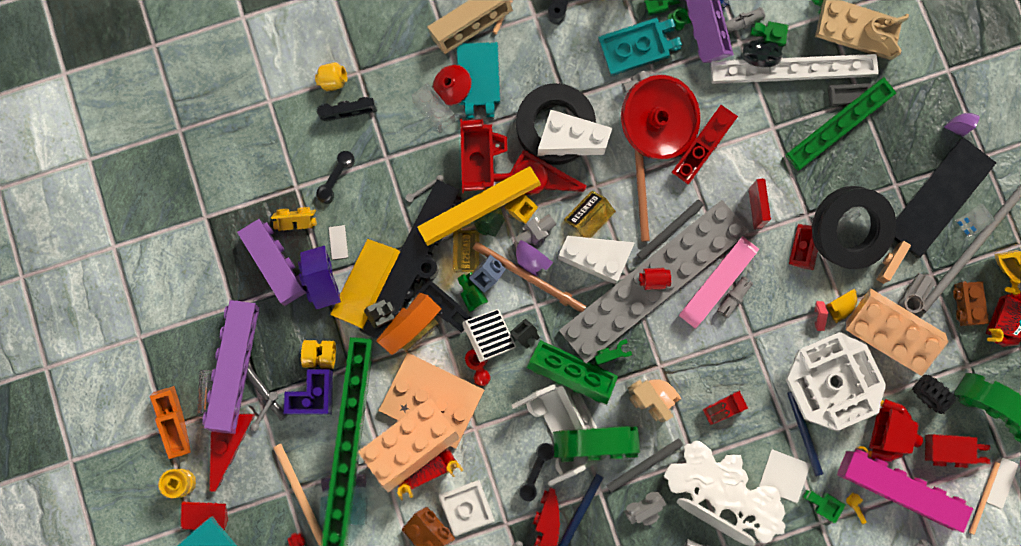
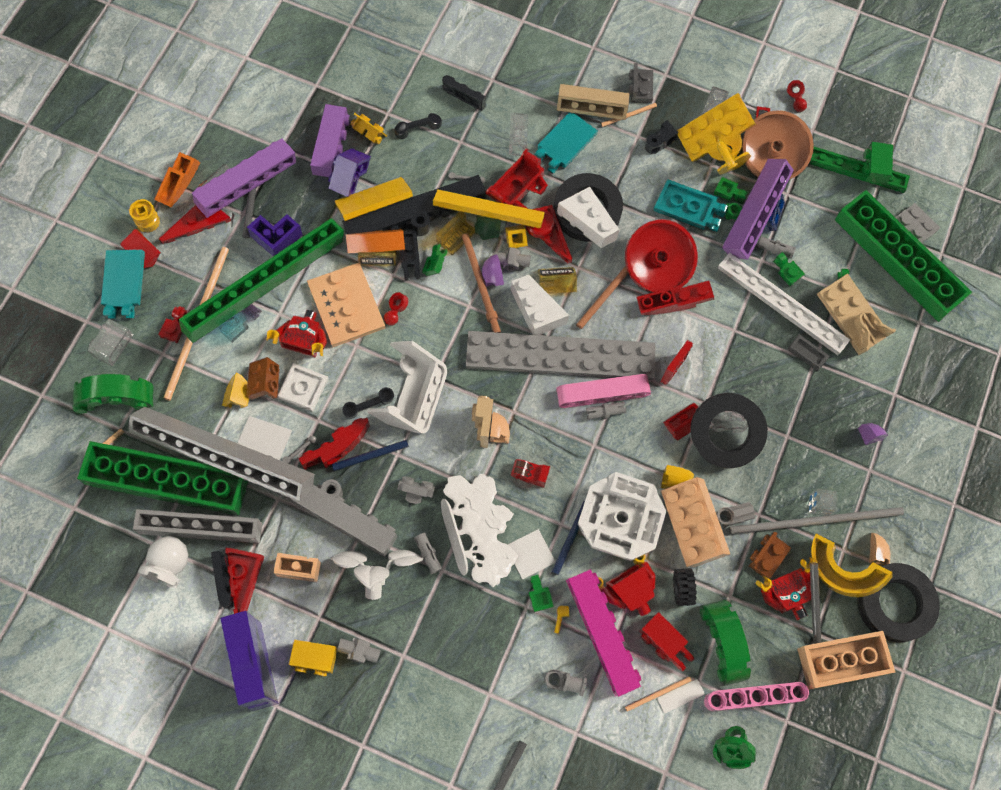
camera: 35 degrees right, 10 degrees down
(272, 396) = (251, 216): light grey hinge -> none
(311, 354) = (304, 215): yellow wheel -> none
(331, 76) = (472, 66): yellow head -> none
(338, 242) = (382, 165): white sticker -> none
(379, 313) = (363, 219): pearl dark grey tile -> none
(408, 445) = (303, 309): light nougat brick -> none
(458, 88) = (544, 131): red dish -> none
(487, 273) = (455, 255): sand blue brick -> none
(489, 335) = (420, 293): tile -> none
(523, 332) = (444, 311): pearl dark grey tile -> none
(572, 372) = (451, 360): green plate -> none
(597, 442) = (427, 413): green brick -> none
(605, 355) = (484, 373): green plate -> none
(644, 465) = (443, 462): dark grey bar -> none
(655, 278) = (561, 348): red brick -> none
(670, 229) = (601, 333): dark grey bar -> none
(762, 53) = (768, 275): black wheel -> none
(822, 312) = (653, 471): coral tile -> none
(840, 124) = (783, 363): green tile -> none
(892, 262) = (737, 479): light nougat plate -> none
(942, 196) = (812, 469): black tile -> none

